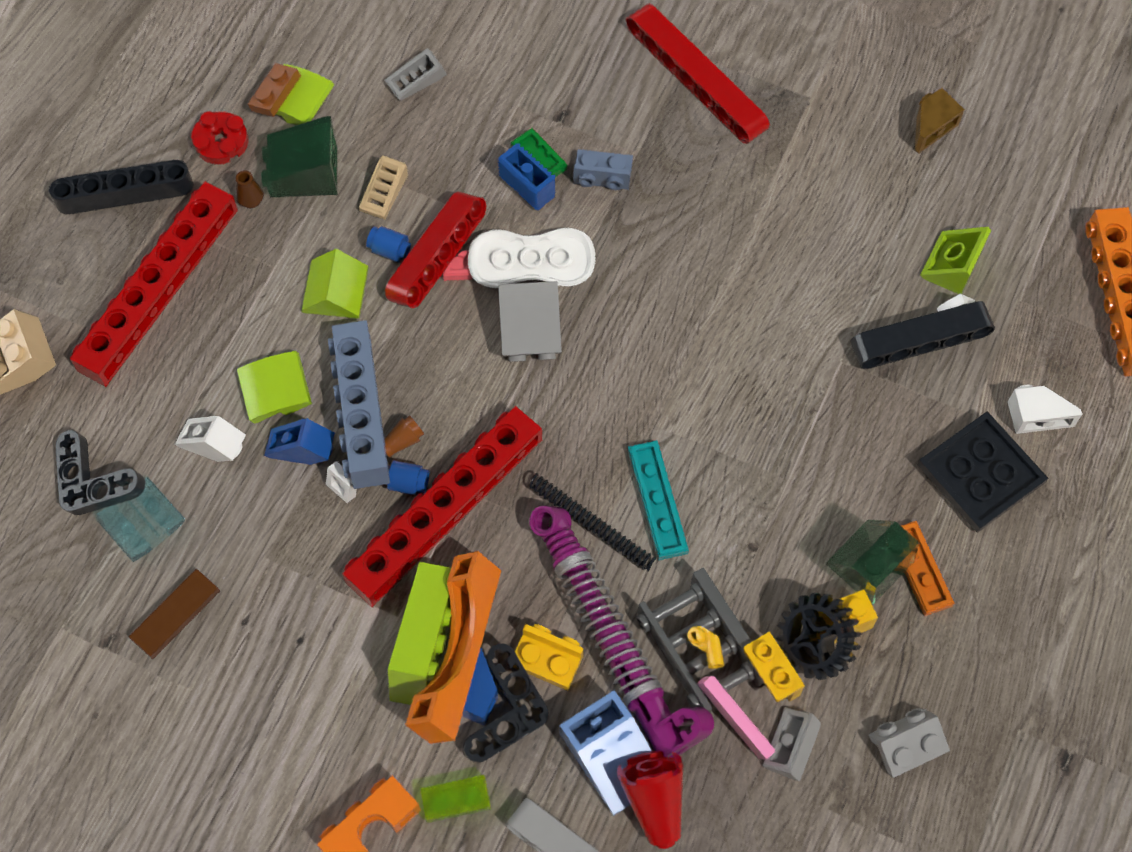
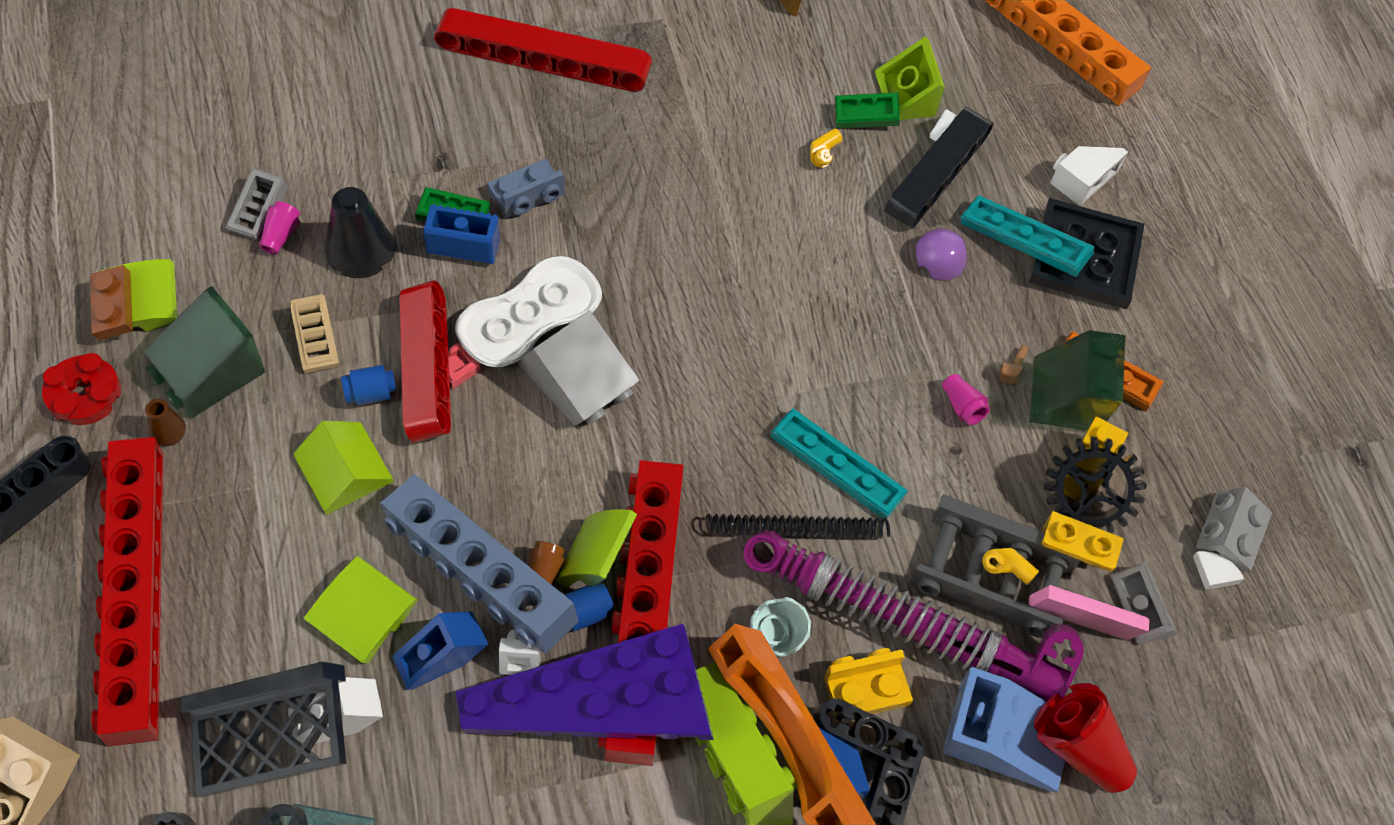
camera: 45 degrees left, 5 degrees down
(175, 399) = (252, 695): none -> black fence
(372, 540) = (610, 692): none -> dark purple wing
(417, 99) = (278, 227): none -> dark pink cone
(441, 444) = (596, 547): none -> lime slope
(458, 136) = (356, 235): none -> black cone
(519, 578) = (783, 625): none -> light aqua hair
(786, 517) = (967, 401): none -> dark pink cone
(841, 520) = (1010, 371): none -> medium nougat hand
(843, 267) = (821, 148): none -> yellow arm
(866, 401) = (942, 253): none -> medium lavender hair
(868, 760) = (1216, 570): none -> white tile
(904, 258) = (867, 110): none -> green plate
(941, 428) = (1027, 235): none -> teal tile

